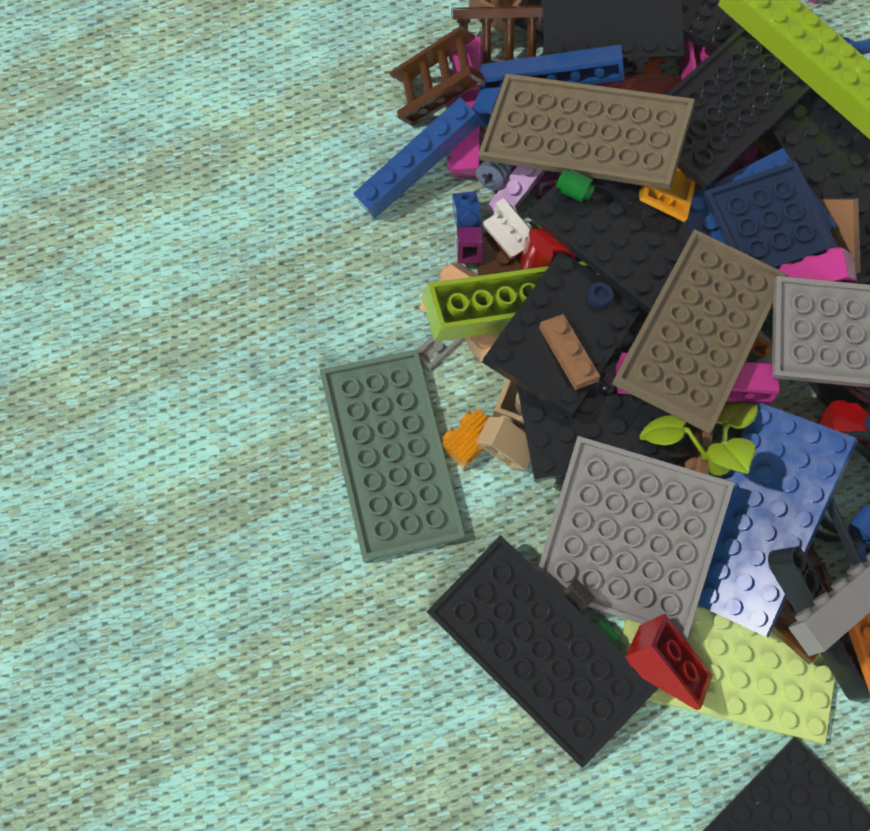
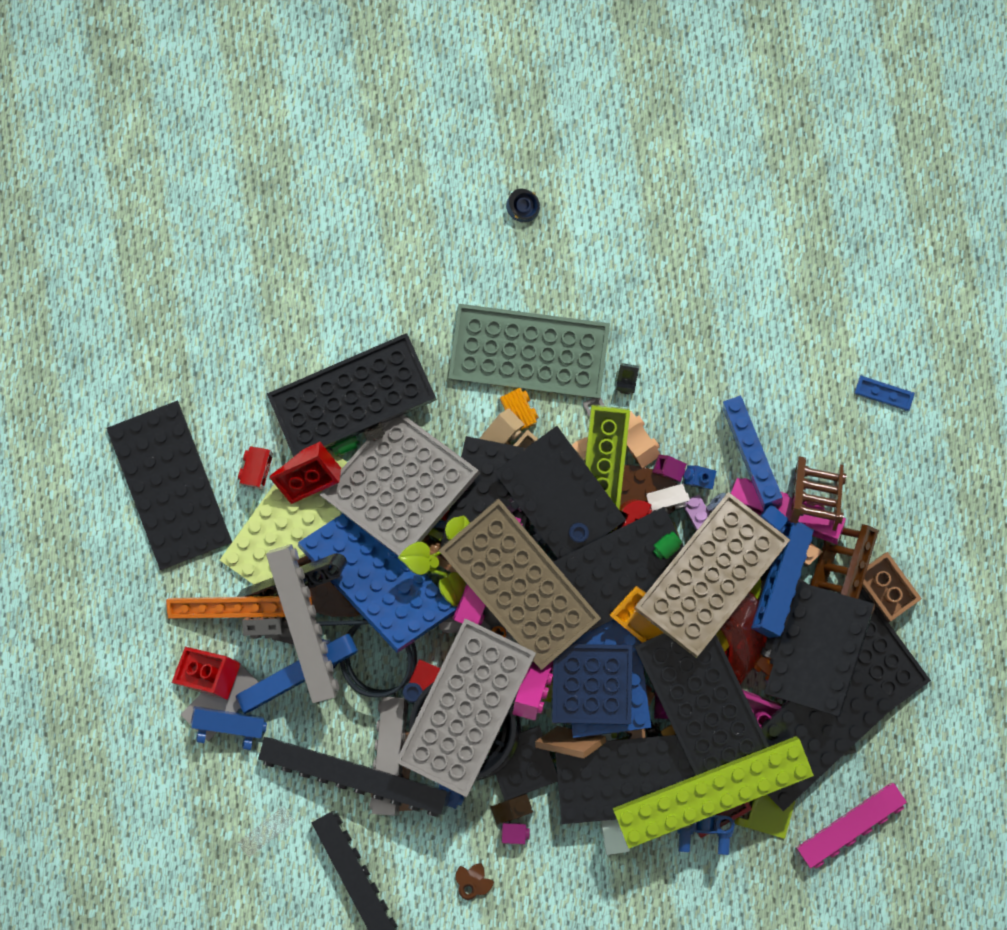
camera: 115 degrees right, 15 degrees up
(202, 528) = (523, 205): none -> dark blue piece
(290, 63) = (884, 393): none -> blue tile
(380, 328) = (627, 378): none -> black bracket
(569, 352) = (540, 487): medium nougat plate -> none
(688, 740) = (256, 467): none -> red slope

